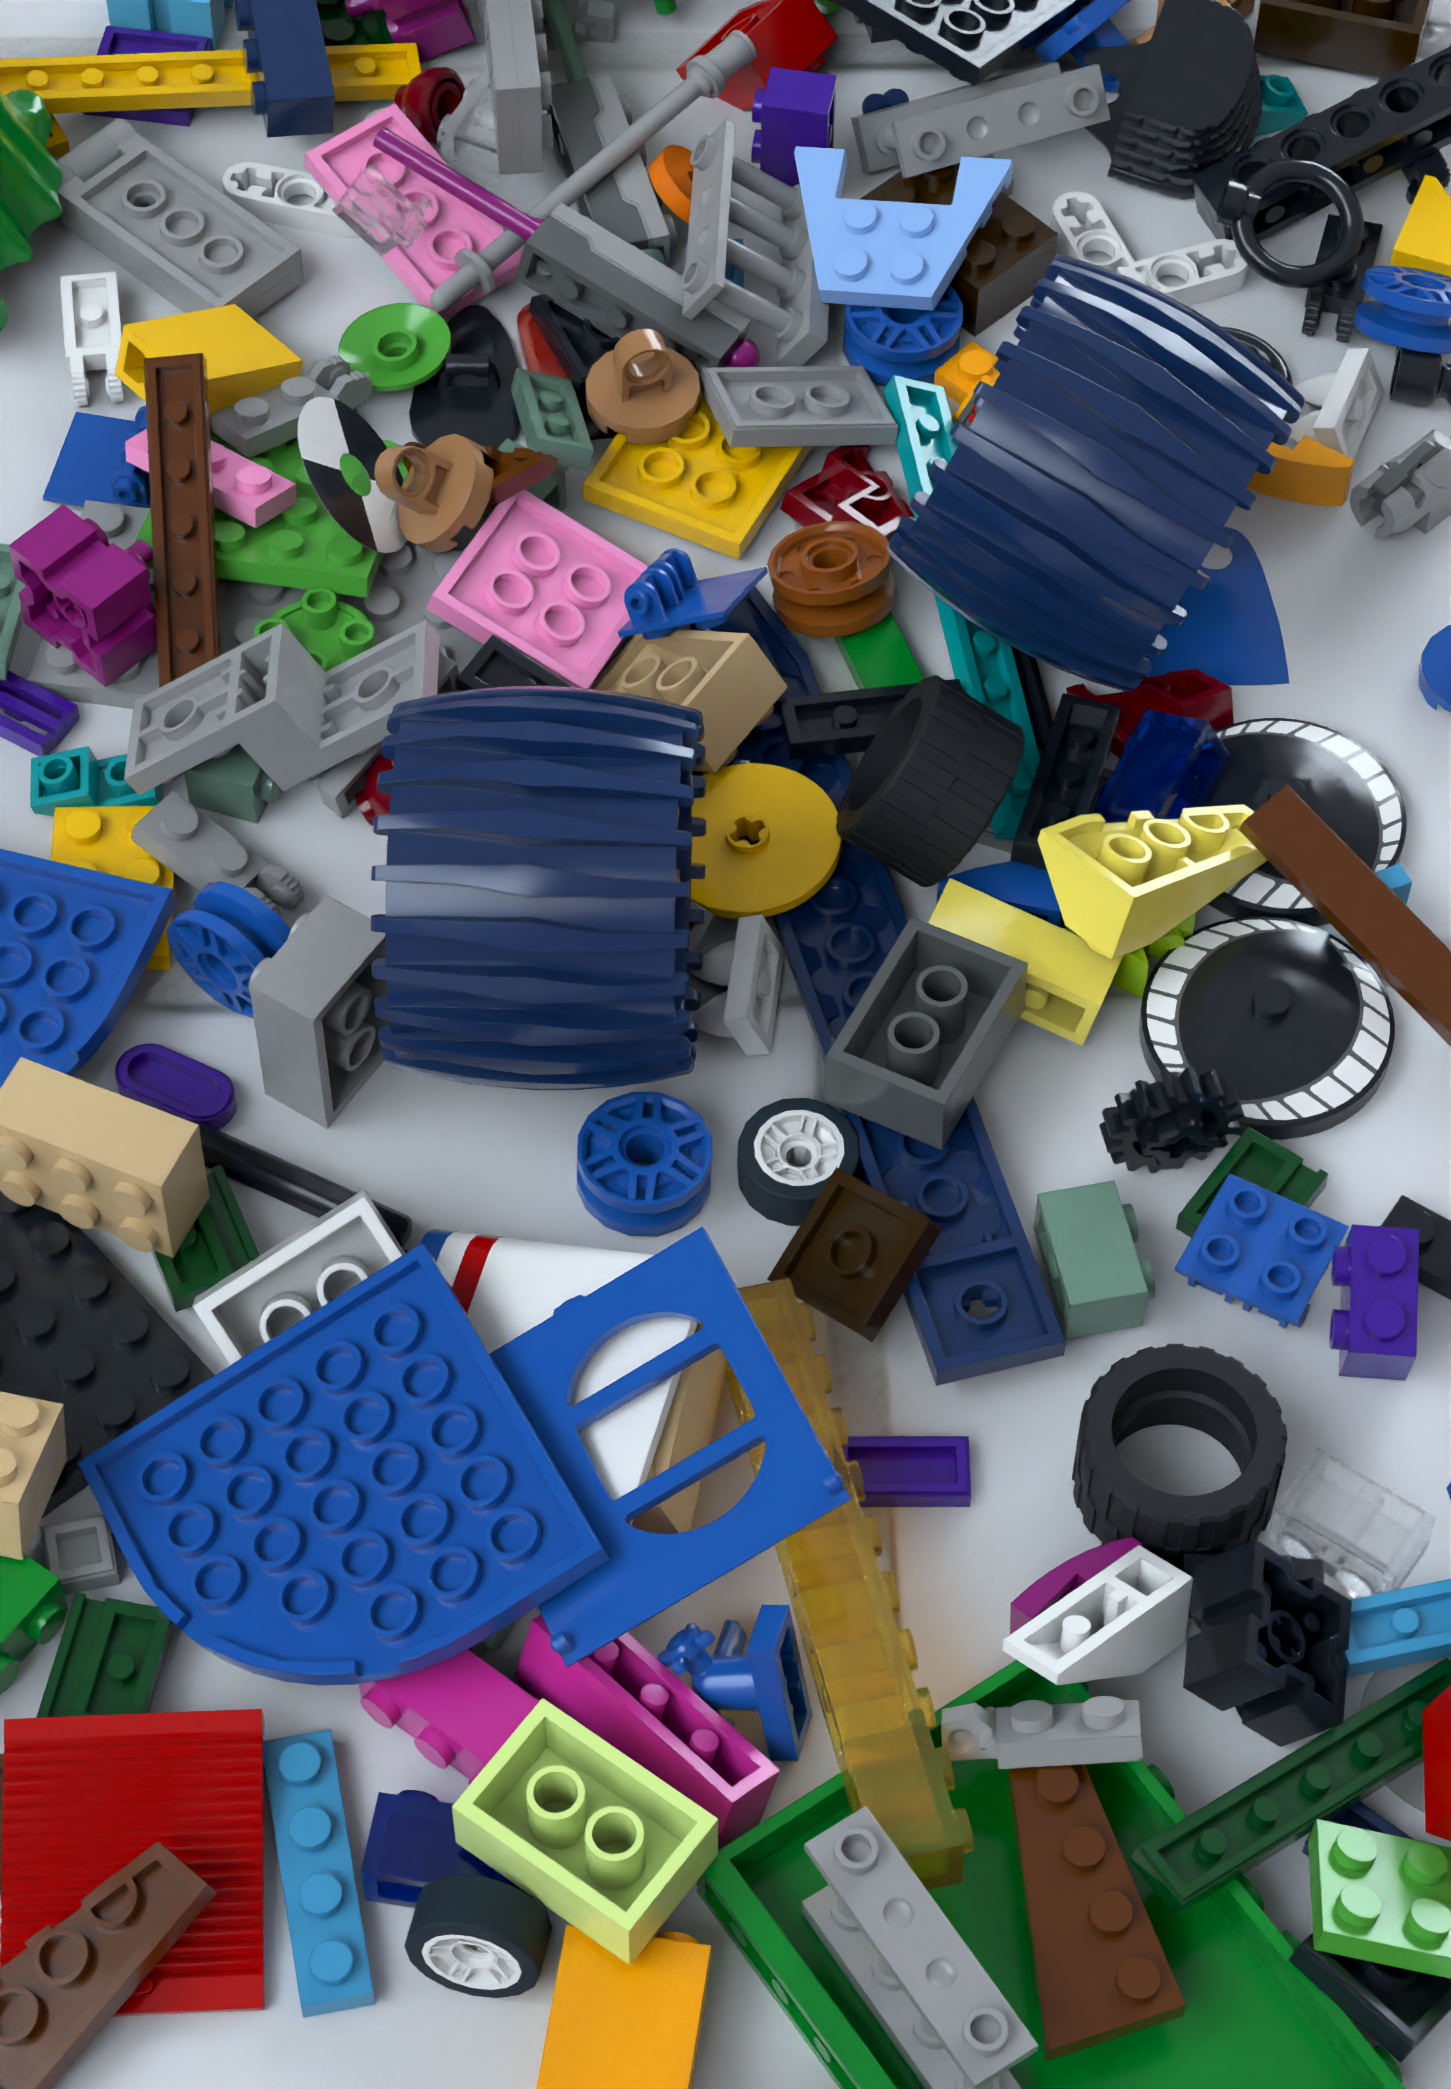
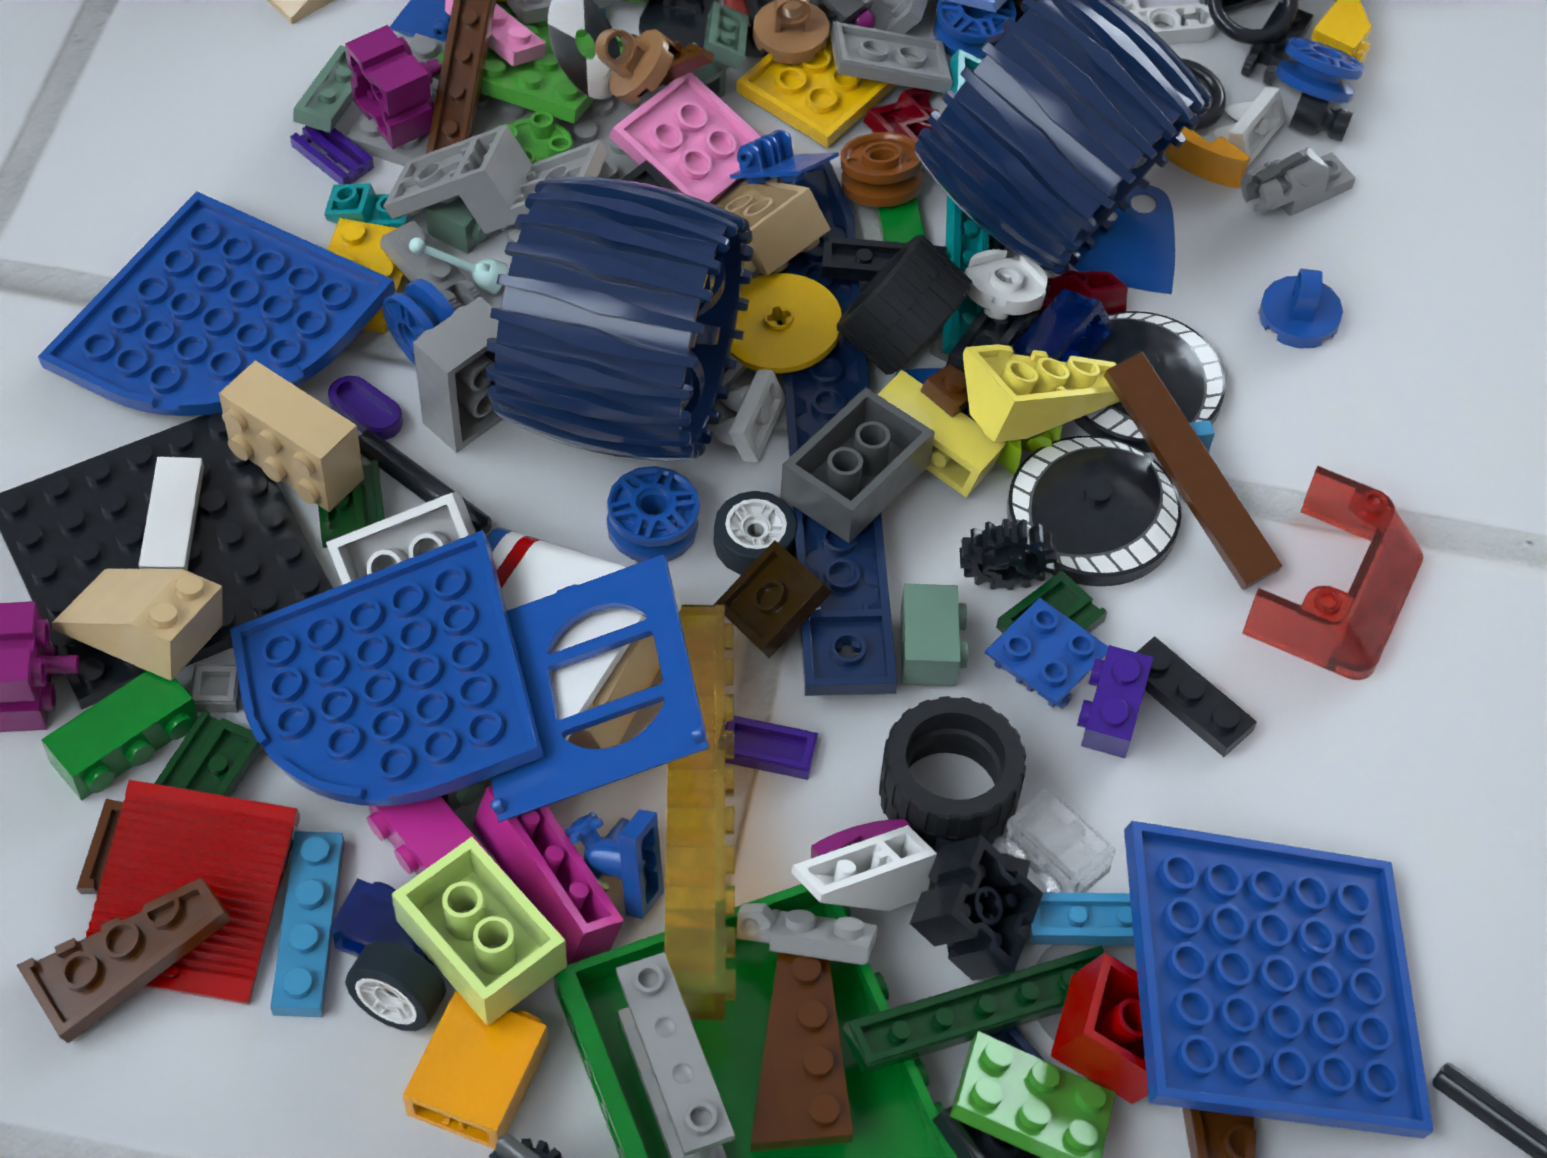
camera: 10 degrees right, 0 degrees up
(300, 849) = (484, 272): none -> light aqua hinge
(1024, 894) = (947, 390): none -> reddish brown plate
(1064, 719) = (1005, 284): none -> white plate

